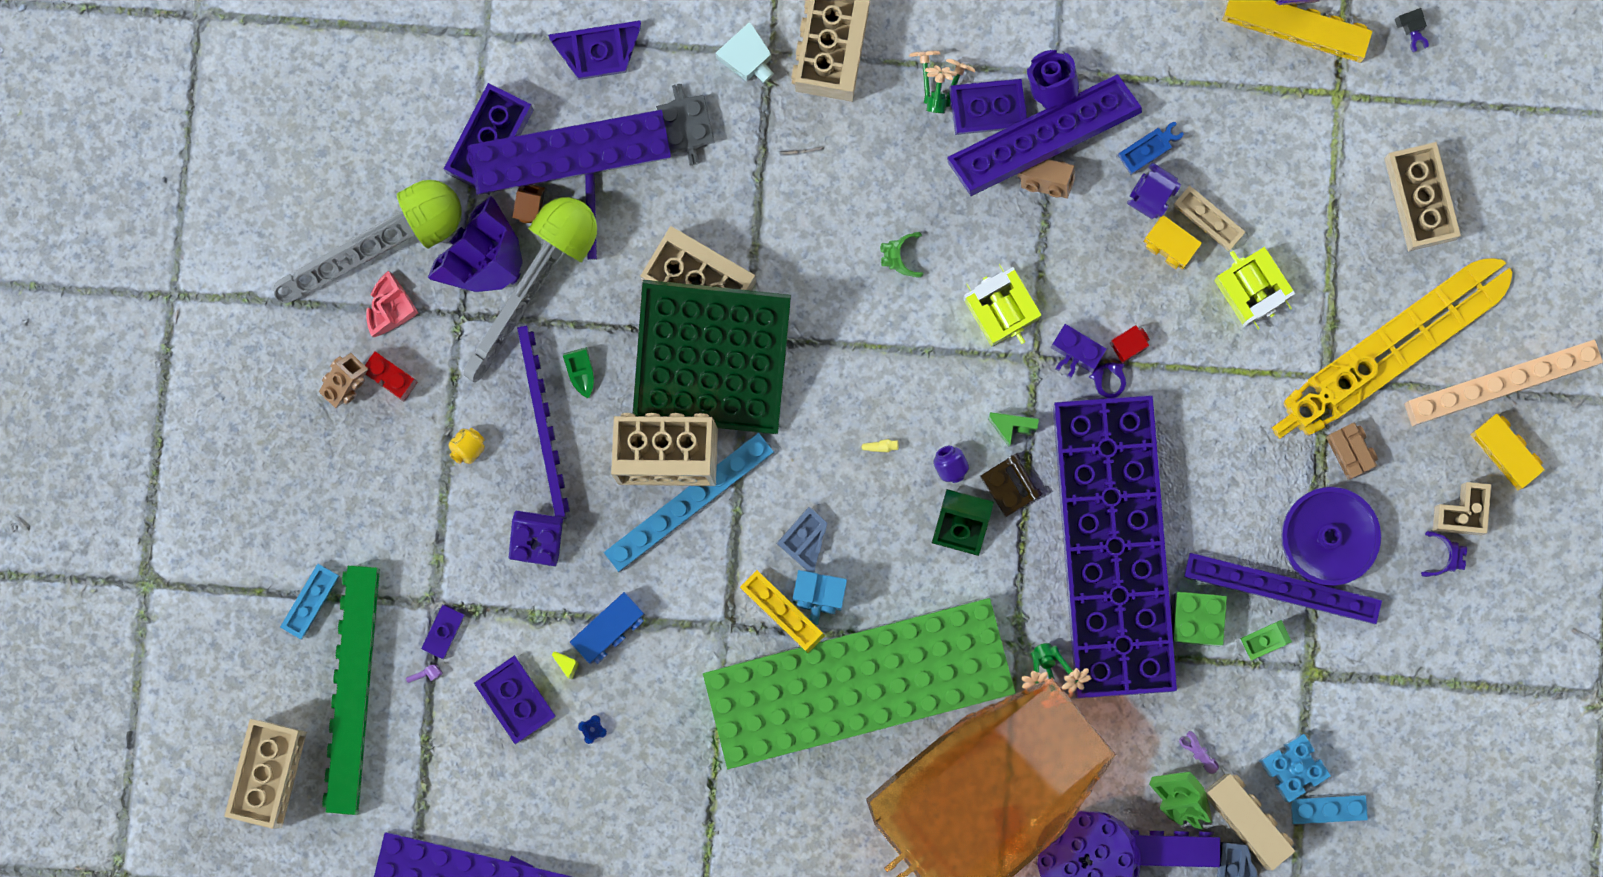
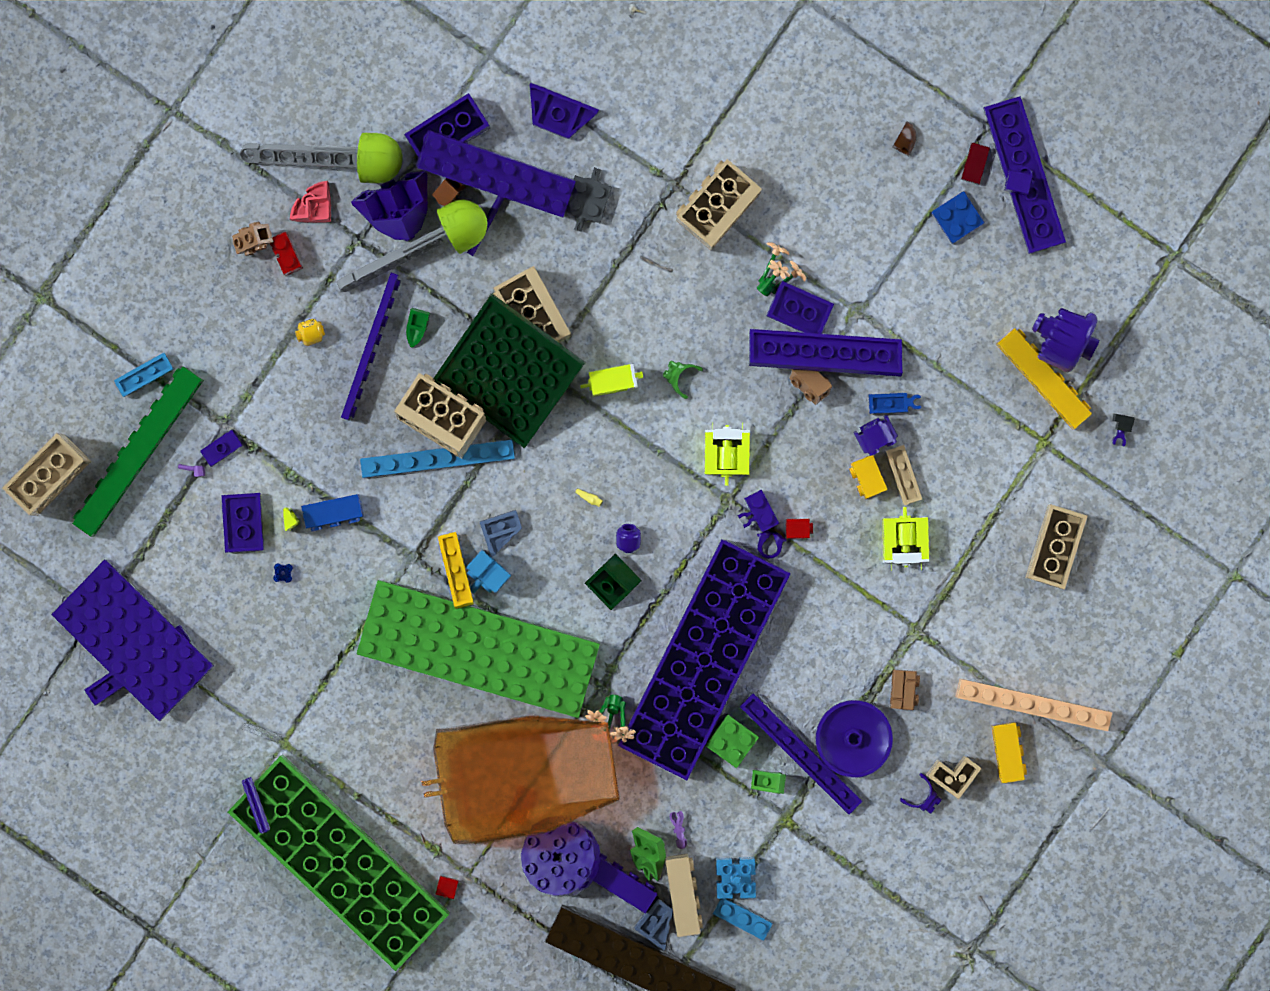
camera: 25 degrees right, 5 degrees up
(544, 528) = (319, 422): dark purple brick -> none
(746, 55) = (657, 176): light aqua torso -> none
(831, 300) = (613, 380): none -> neon yellow piece
(1003, 488) = (654, 576): dark brown plate -> none
(1005, 423) = (682, 532): bright green slope -> none
(1053, 78) = (854, 317): dark purple brick -> none
(1400, 359) = (977, 626): yellow piece -> none

